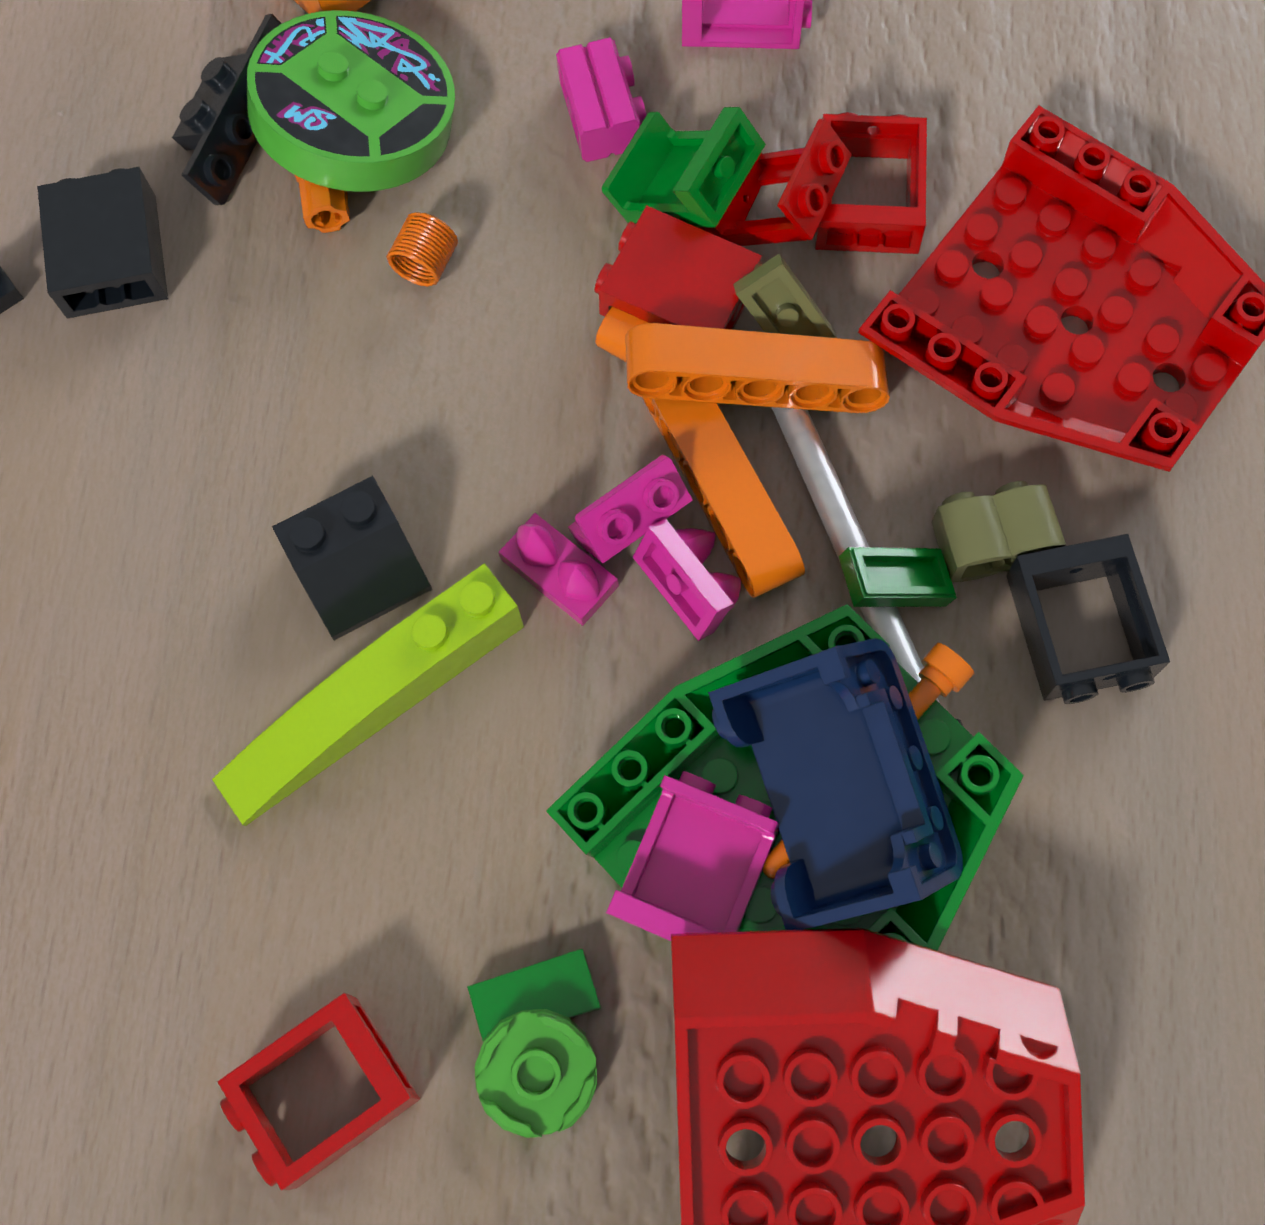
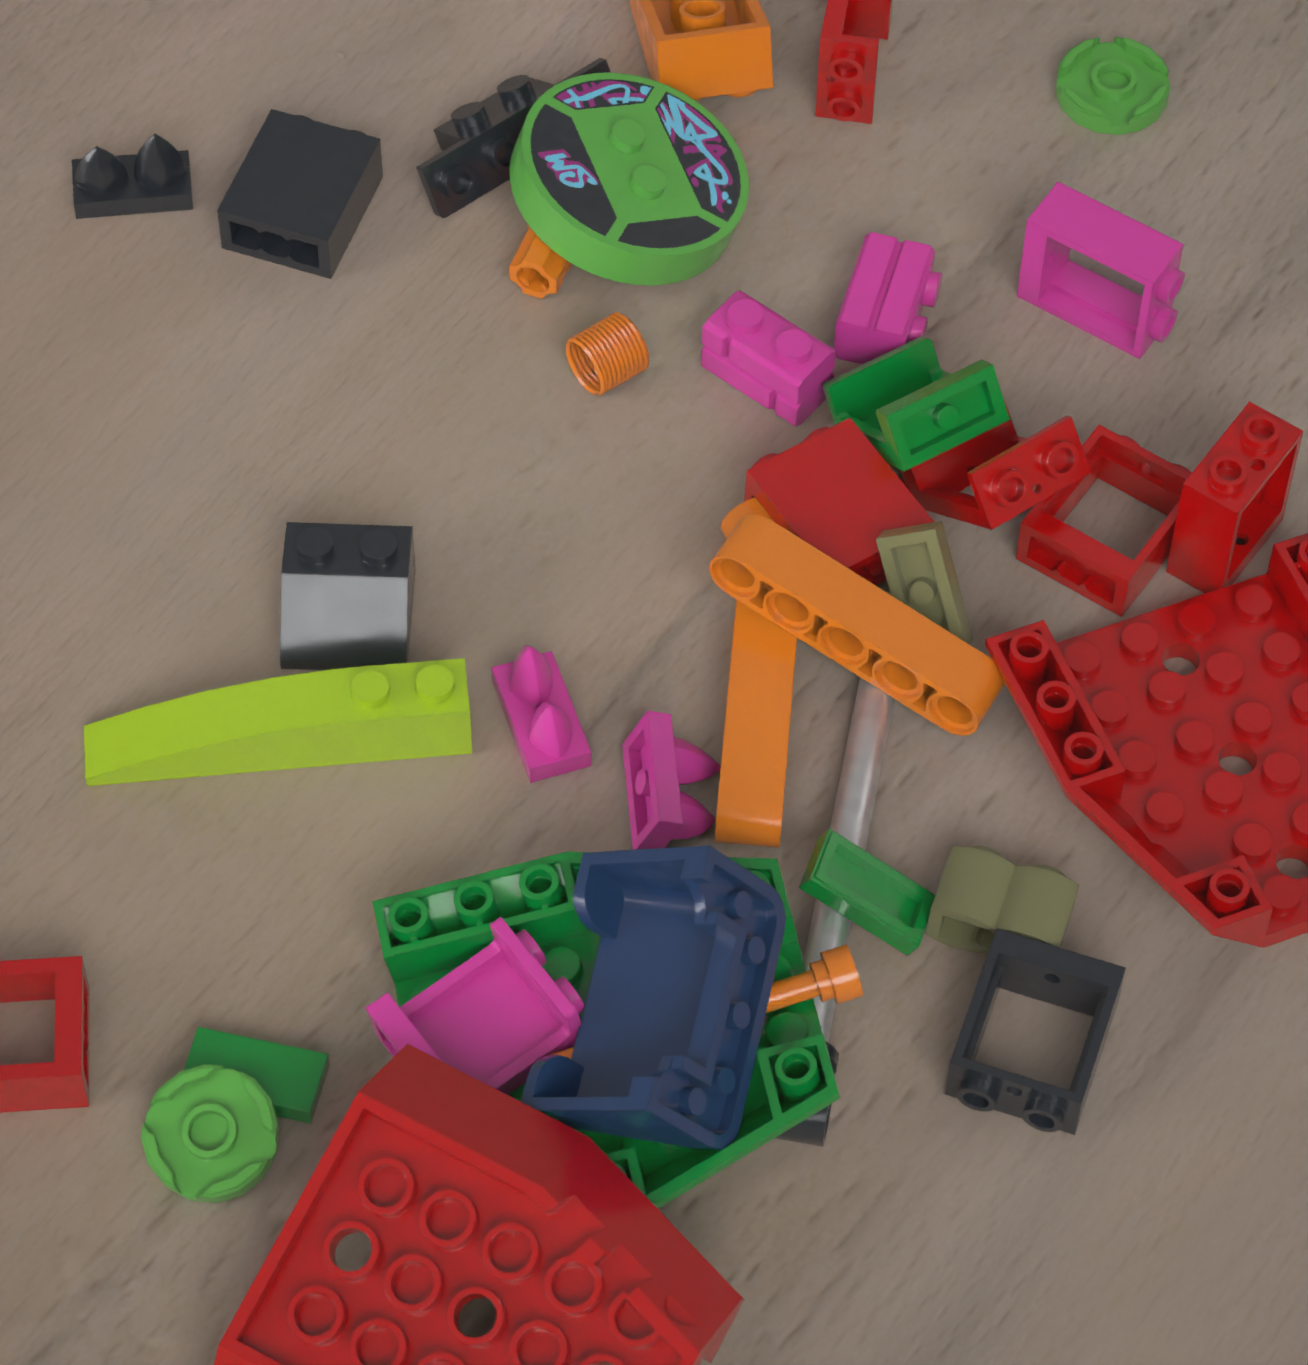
camera: 25 degrees right, 15 degrees down
(543, 188) = (767, 357): none -> dark pink brick
(630, 509) = (627, 685): dark pink bracket -> none
(962, 119) = (1233, 495): none -> red window

